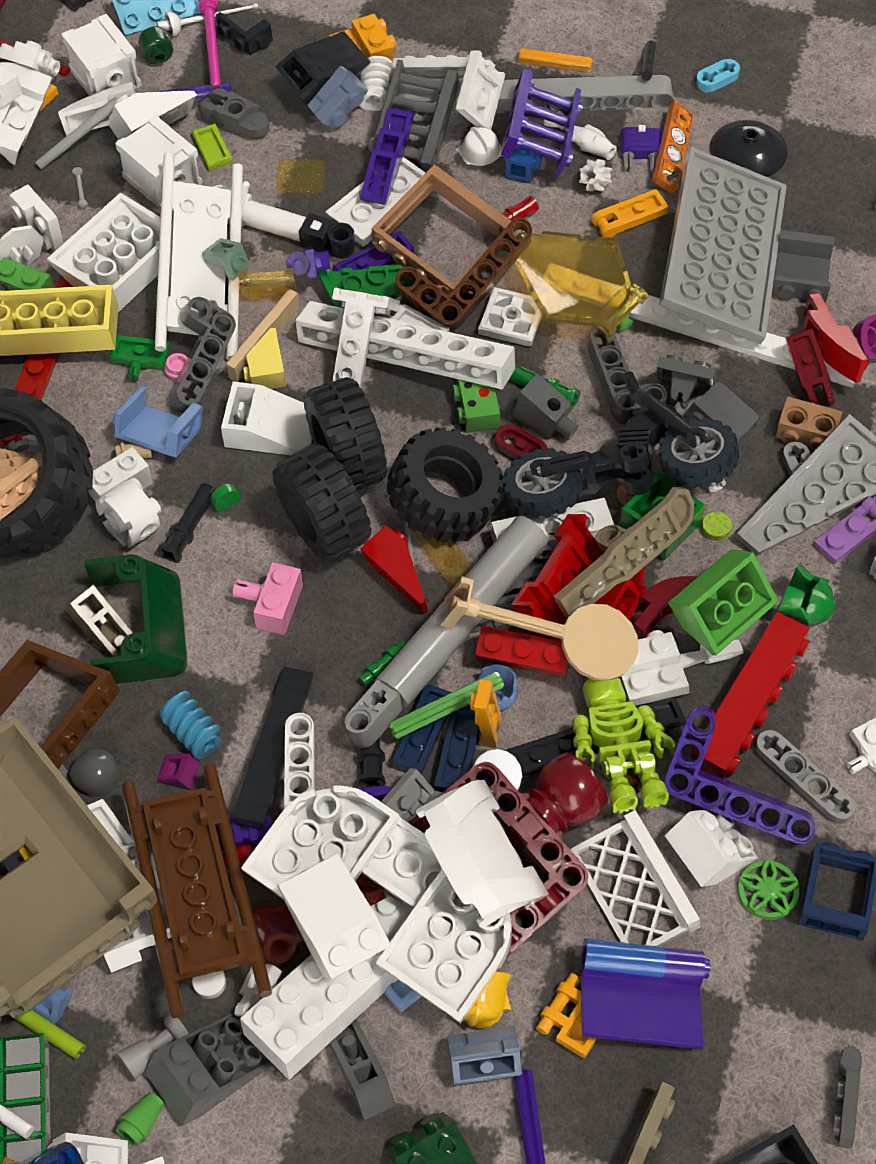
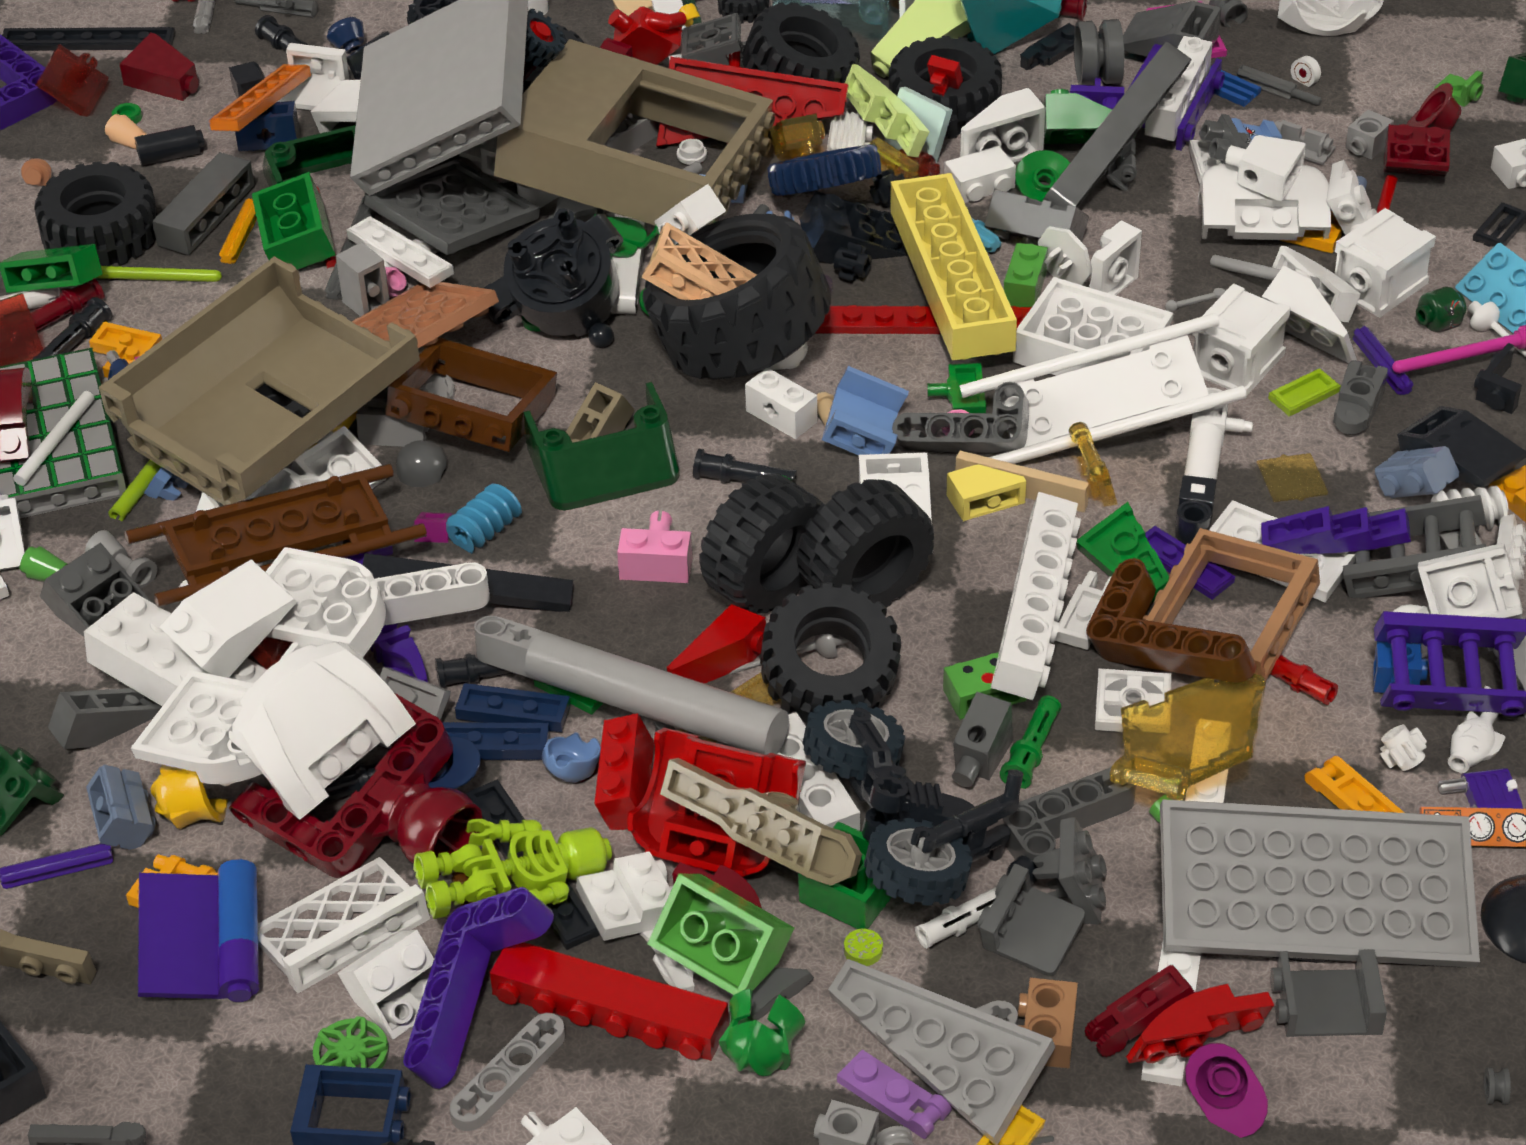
camera: 80 degrees right, 15 degrees down
(129, 512) = (733, 414): white brick -> none
(229, 255) = (1104, 412): sand green bracket -> none
(308, 262) = (1139, 494): dark purple hips -> none
(357, 330) = (1058, 520): white bracket -> none
(440, 707) = (536, 710): bright green axle -> none
(486, 713) = (520, 734): light orange plate -> none
(523, 441) = (930, 739): dark red plate -> none
(594, 638) = (632, 813): tan piece -> none

